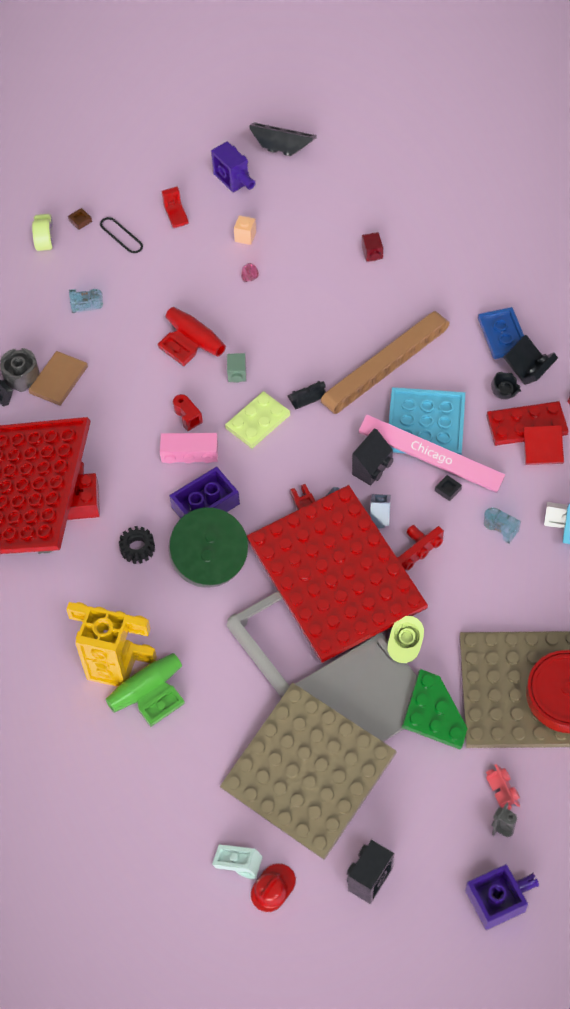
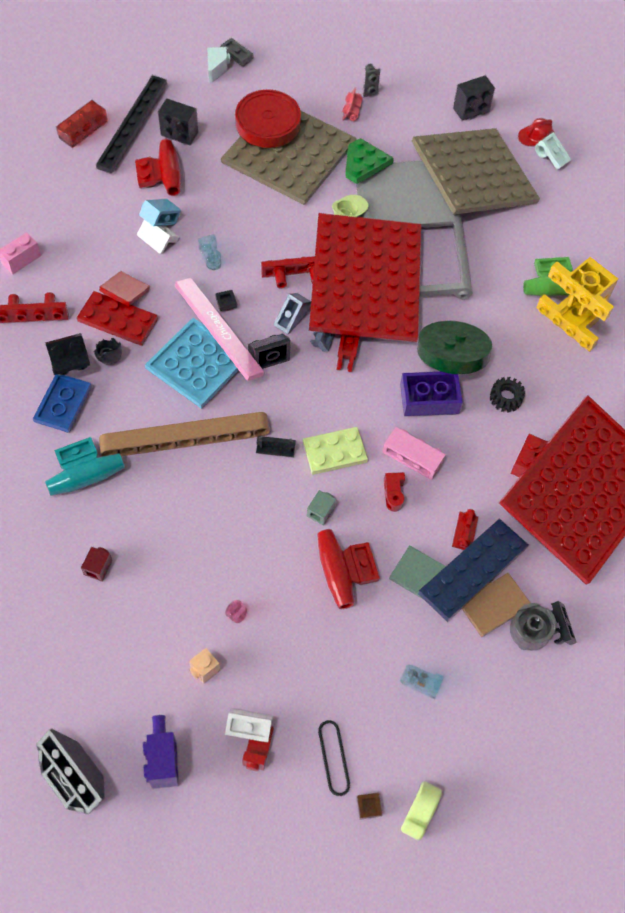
camera: 155 degrees left, 5 degrees up
(90, 381) = (473, 569): none -> dark blue plate
(110, 414) = (465, 529): none -> red hinge
(123, 368) = (415, 570): none -> sand green tile
(190, 217) = (248, 725): none -> white panel
(441, 295) = (82, 467): none -> teal plate
(503, 885) = (403, 53): dark purple brick -> none

